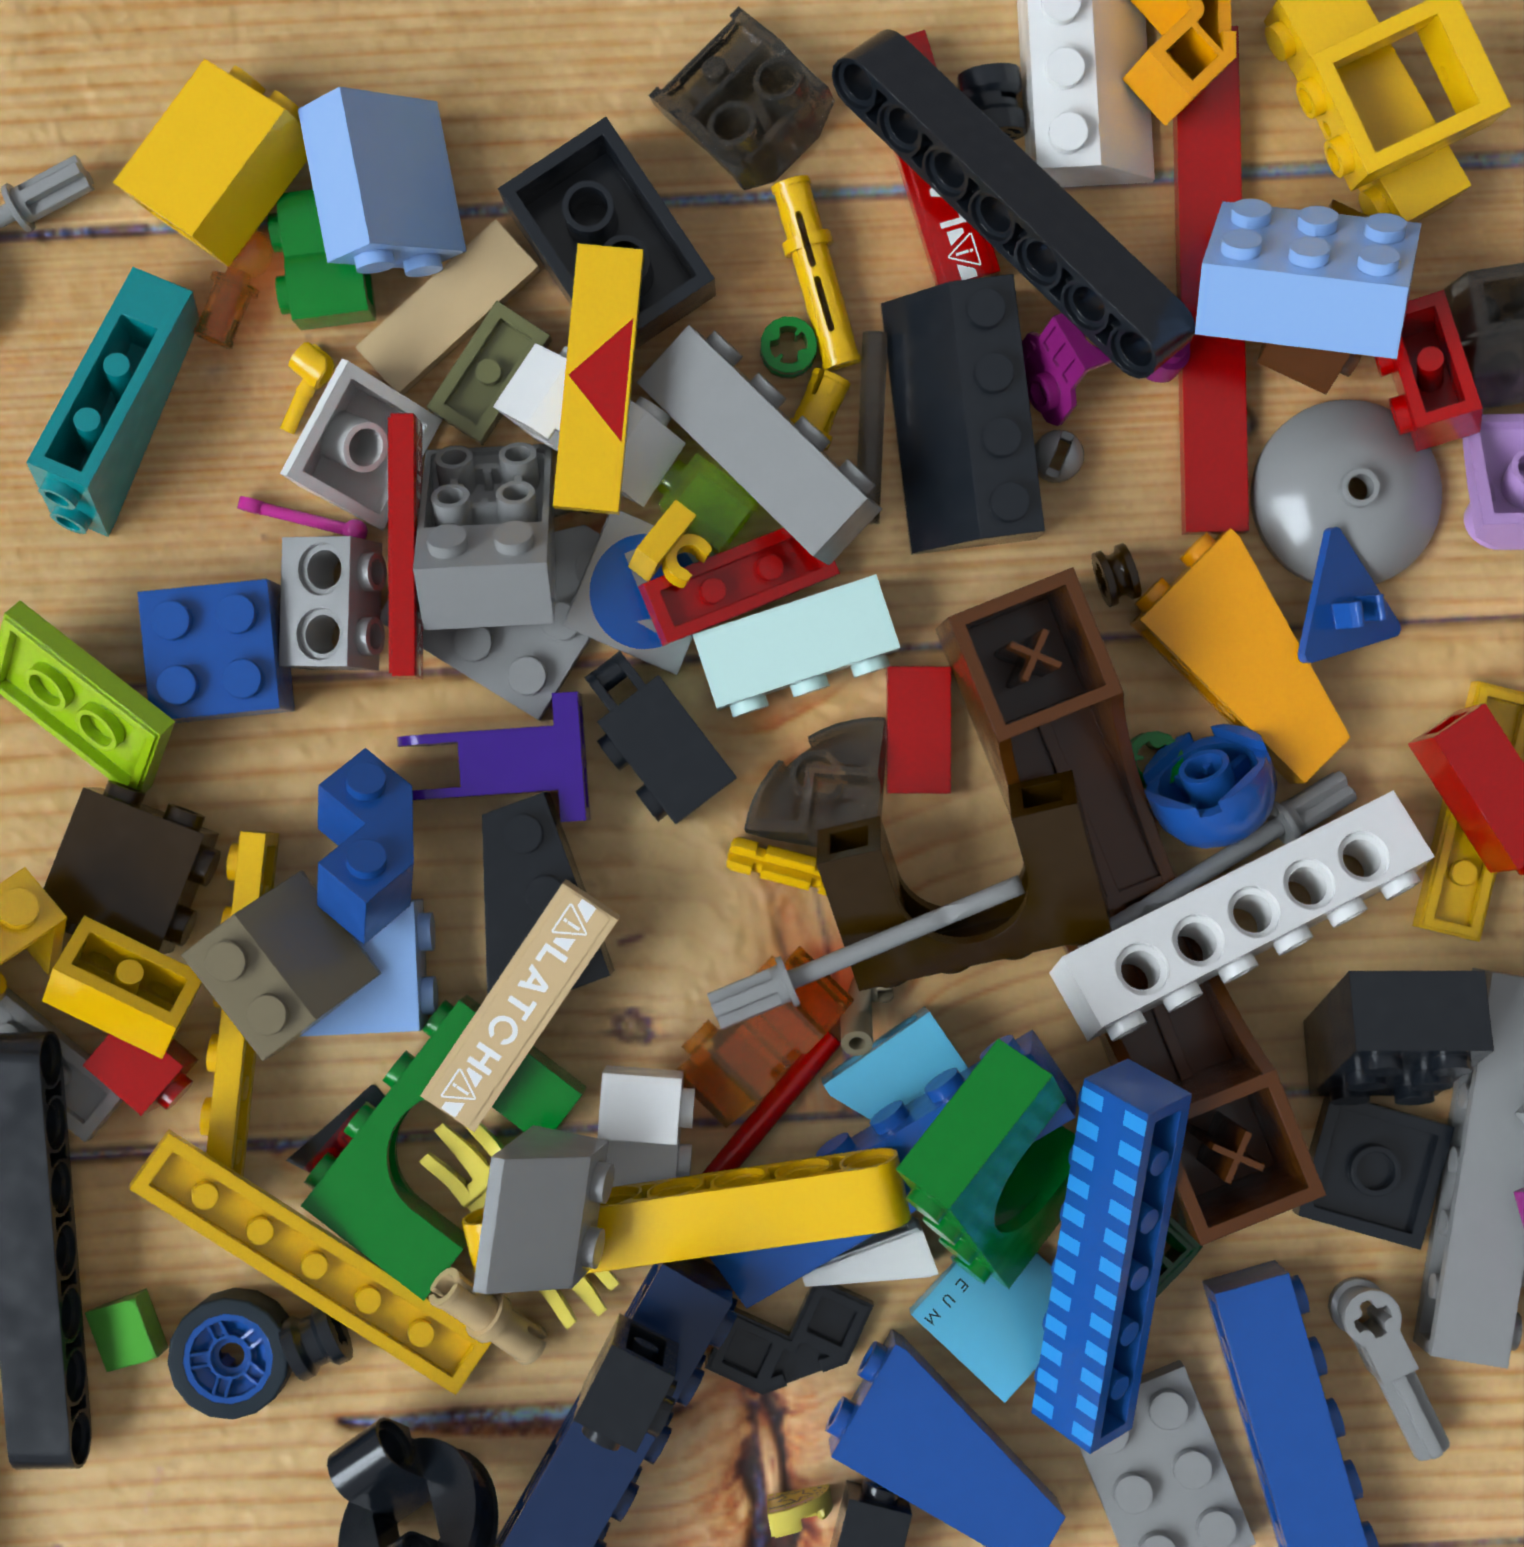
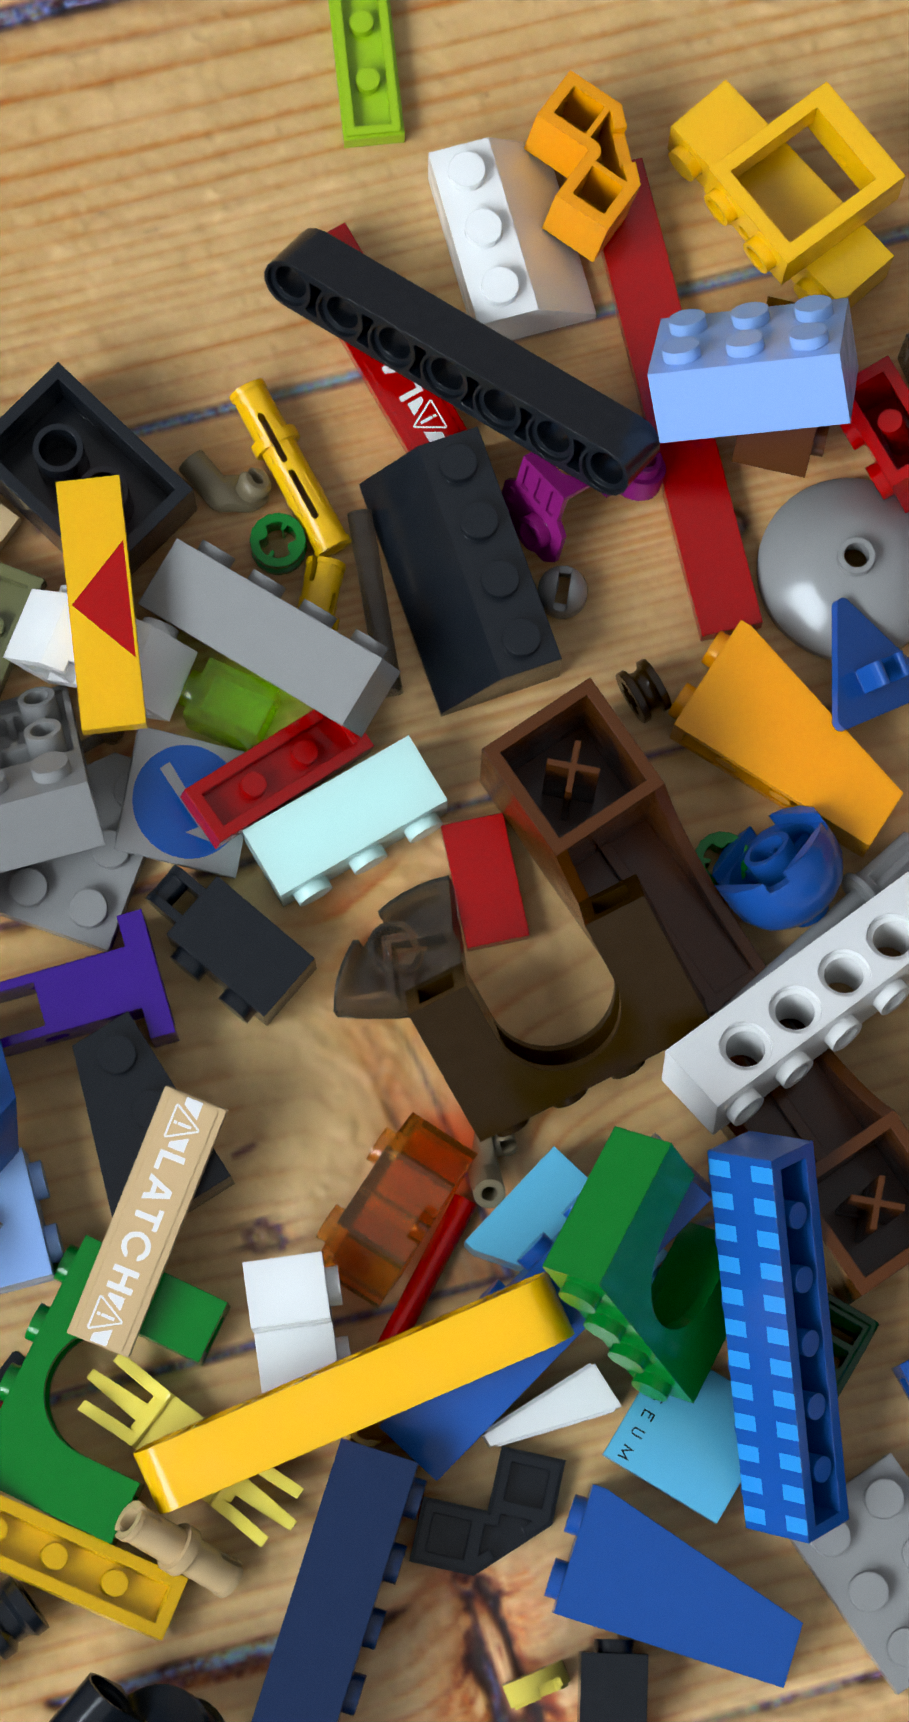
camera: 15 degrees left, 10 degrees down
(543, 1212) = (213, 1402): light grey slope -> none
(628, 1387) = (330, 1549): black brick -> none
(664, 544) = (197, 746): yellow tile -> none
(747, 102) = (190, 323): clear smoke slope -> none
(748, 283) = (226, 492): none -> dark tan arm
(774, 864) = (374, 1043): yellow axle -> none
(777, 985) = (398, 1143): light grey piece -> none
(994, 92) = (424, 264): black wheel -> none

